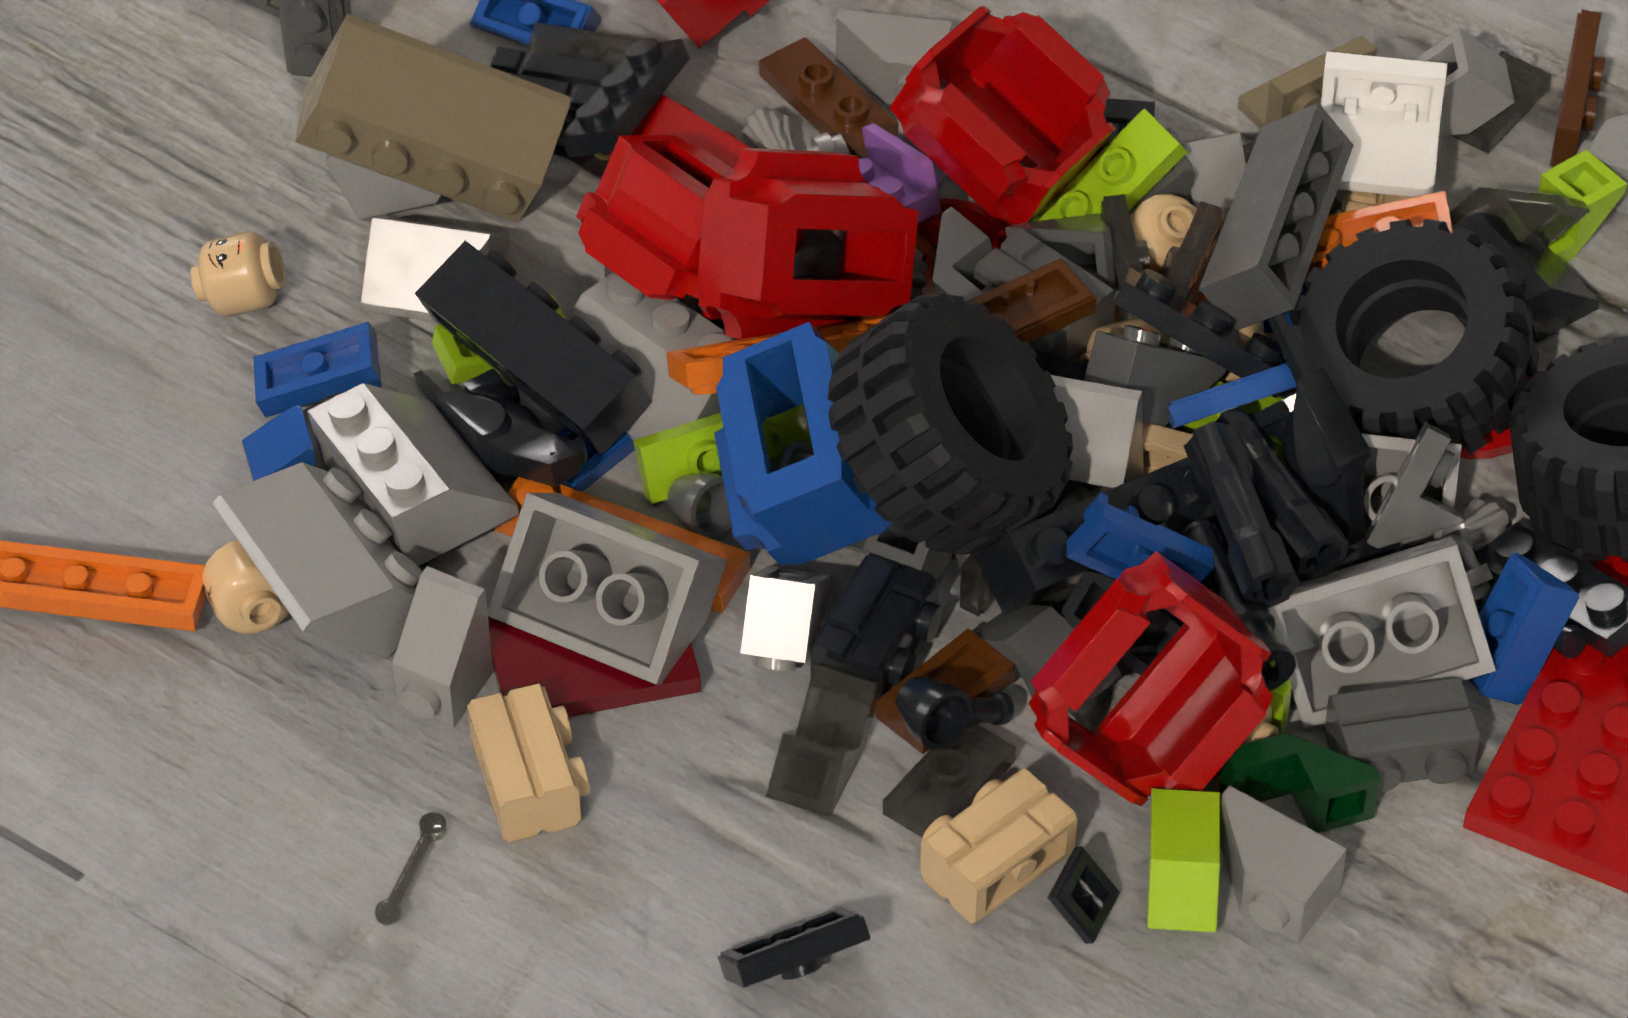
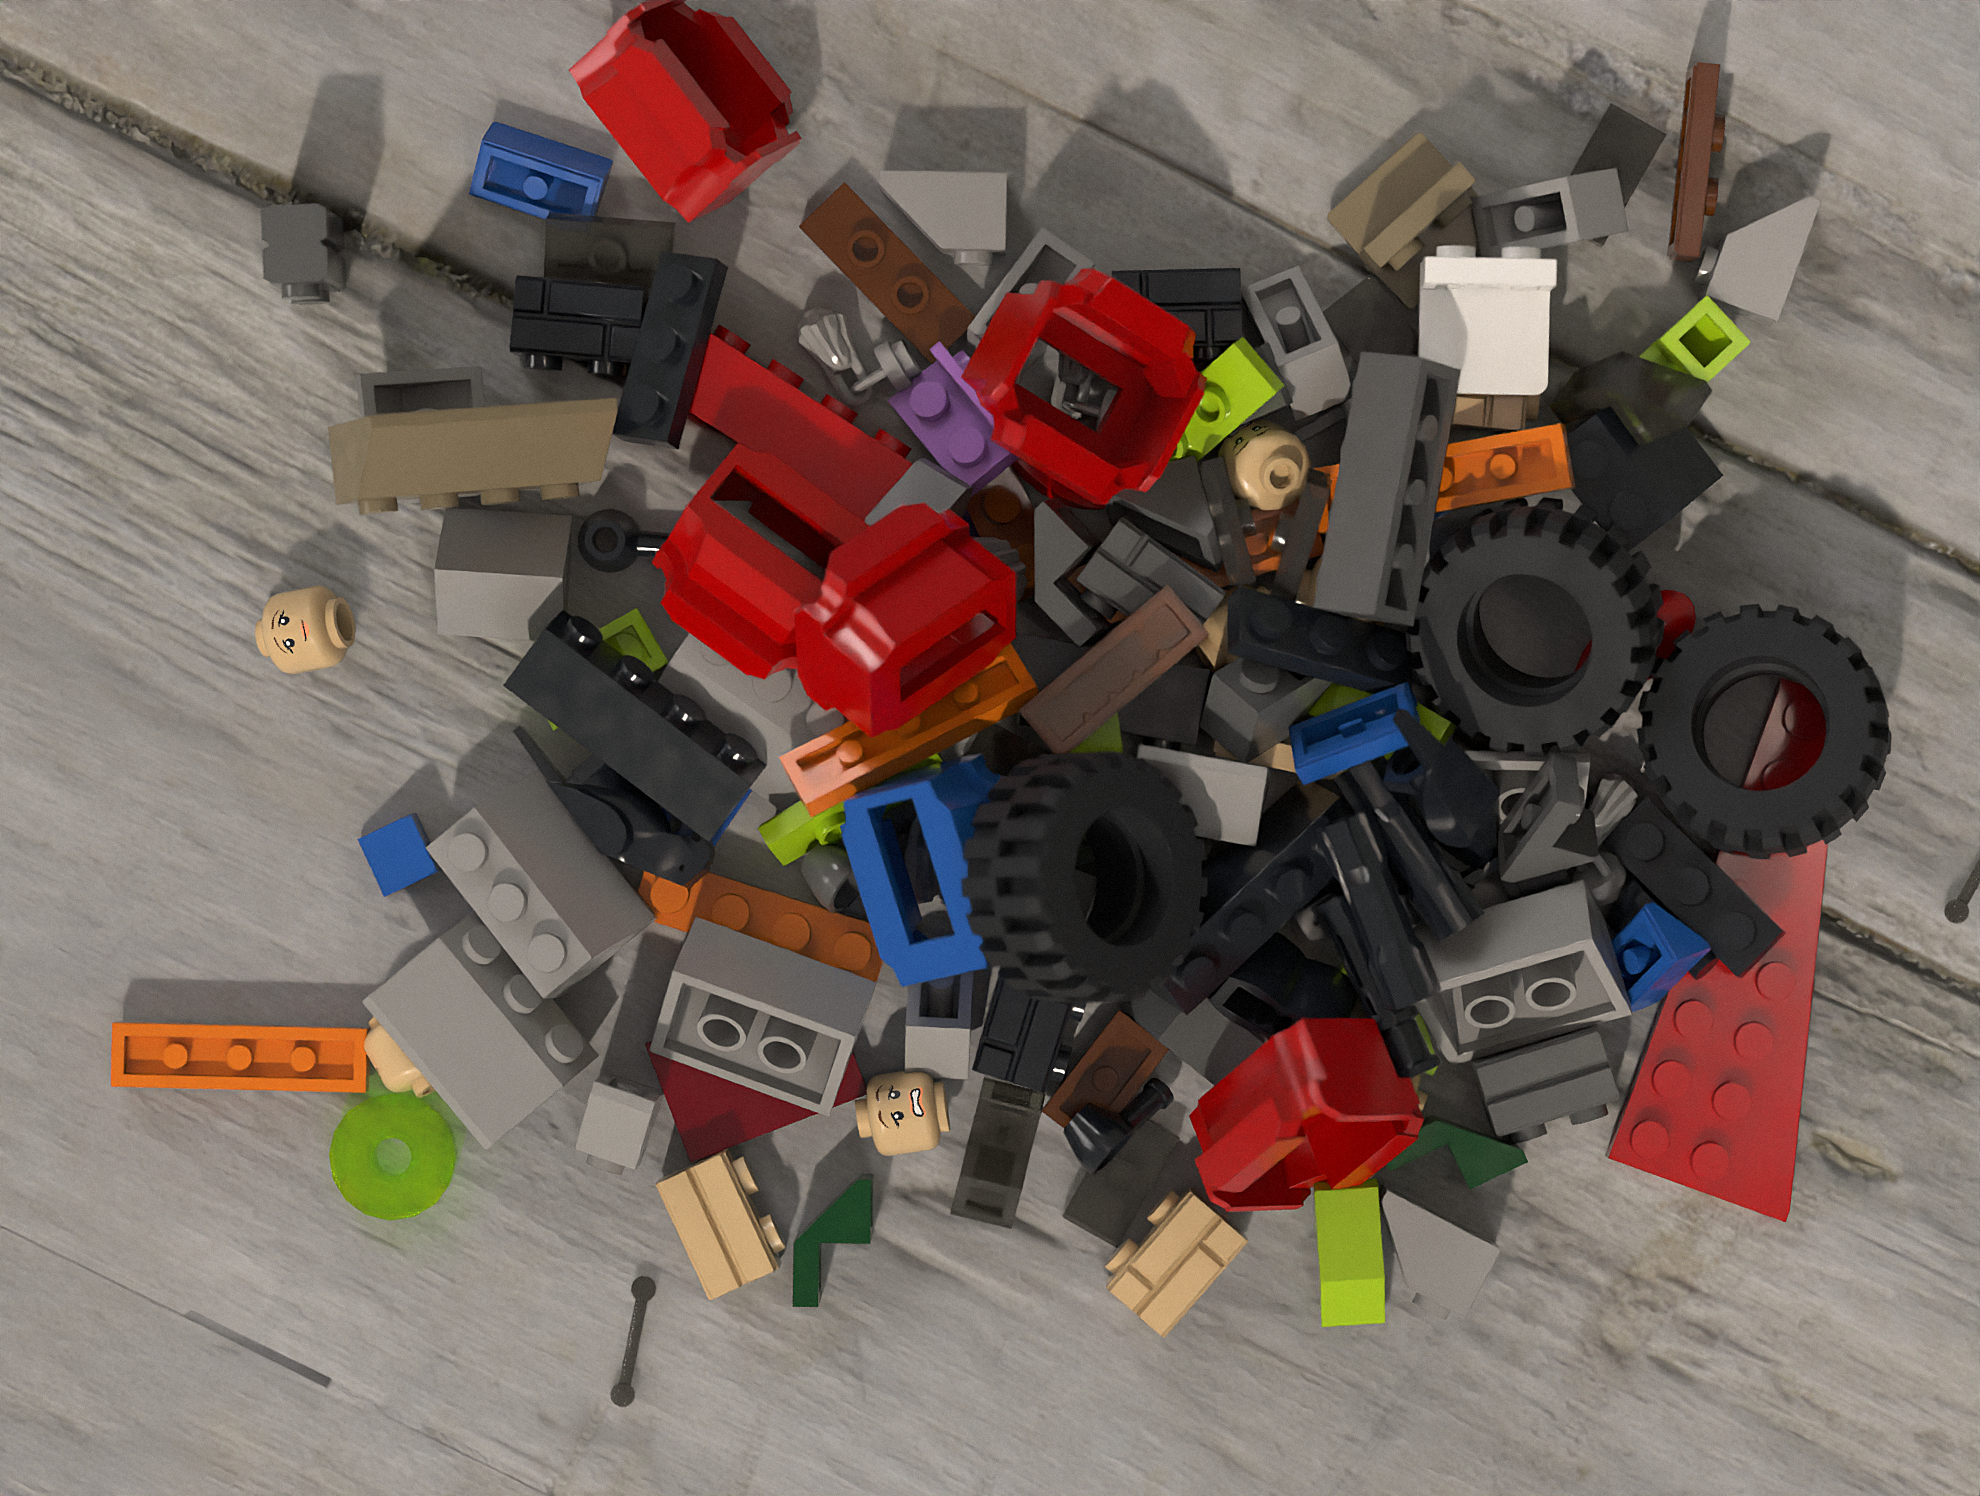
camera: 10 degrees left, 40 degrees up
(199, 656) = (356, 1164): none -> clear neon green tile
(316, 369) = (417, 757): blue plate -> none
(542, 254) = (630, 545): none -> black bar
(642, 777) = (843, 1221): none -> dark green slope
(733, 686) = (903, 1112): none -> tan head
(794, 949) = (1002, 1399): black plate -> none
(1083, 894) = (1257, 1302): black slope -> none
(1120, 540) = (1259, 966): blue plate -> none

